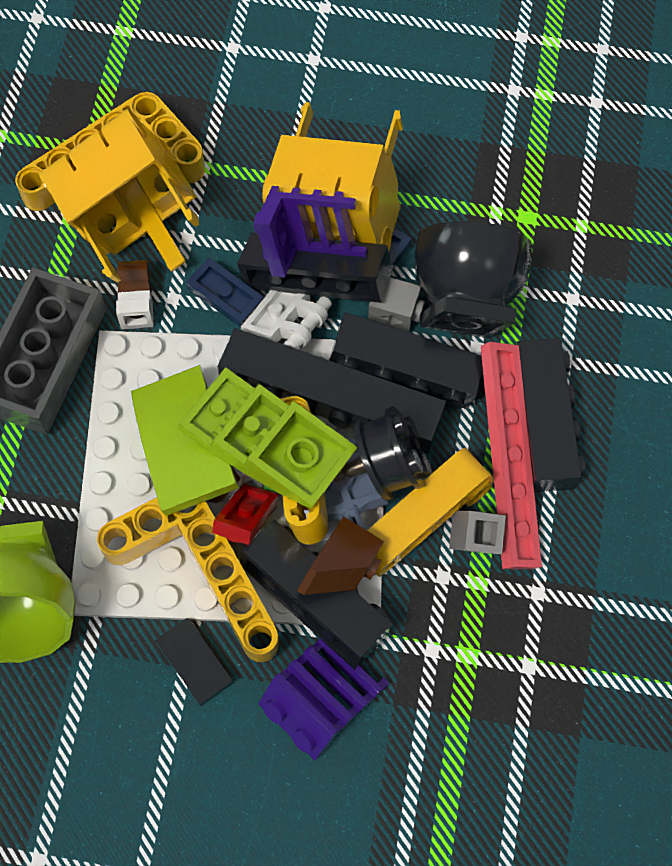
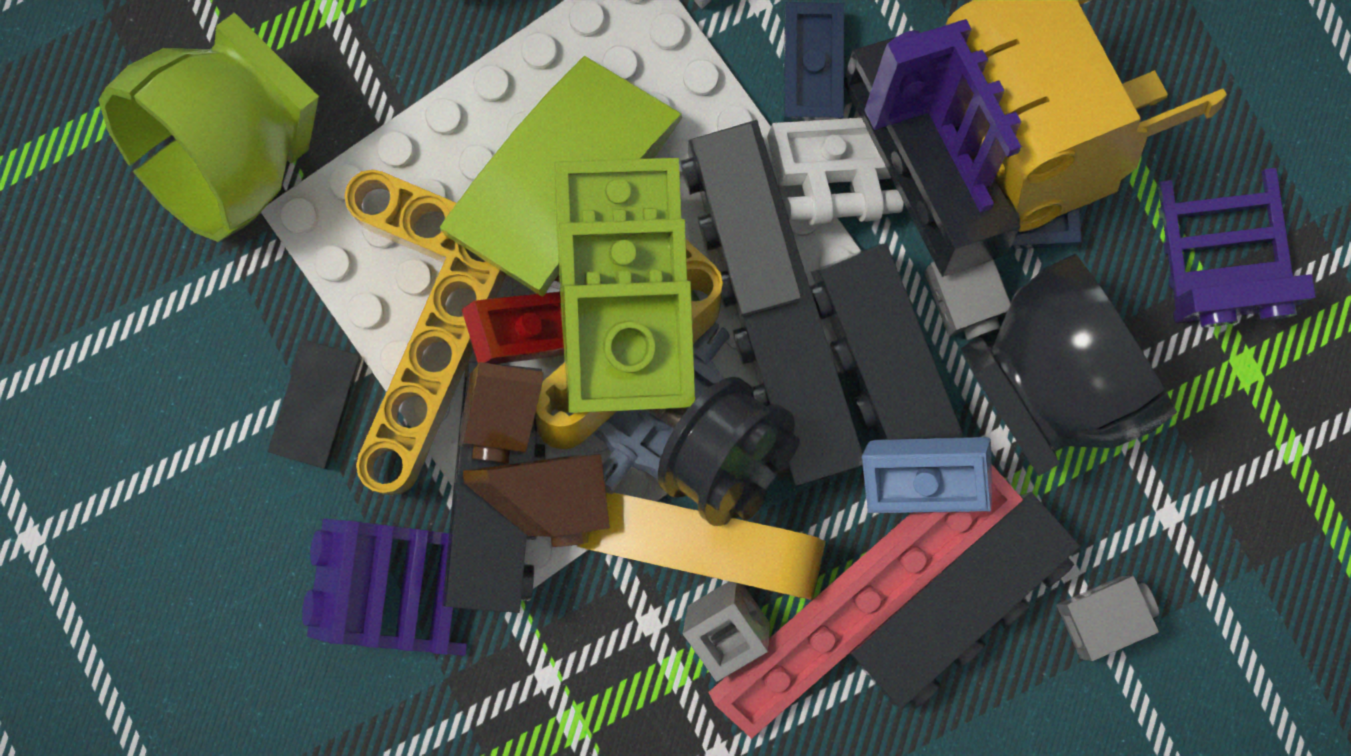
camera: 55 degrees right, 15 degrees up
(280, 365) = (746, 220): none -> dark grey tile
(281, 543) = (499, 411): none -> reddish brown slope
(475, 374) = (928, 475): none -> medium blue slope
(487, 194) = (1224, 293): none -> dark purple plate
(604, 355) = (1109, 617): none -> light grey brick

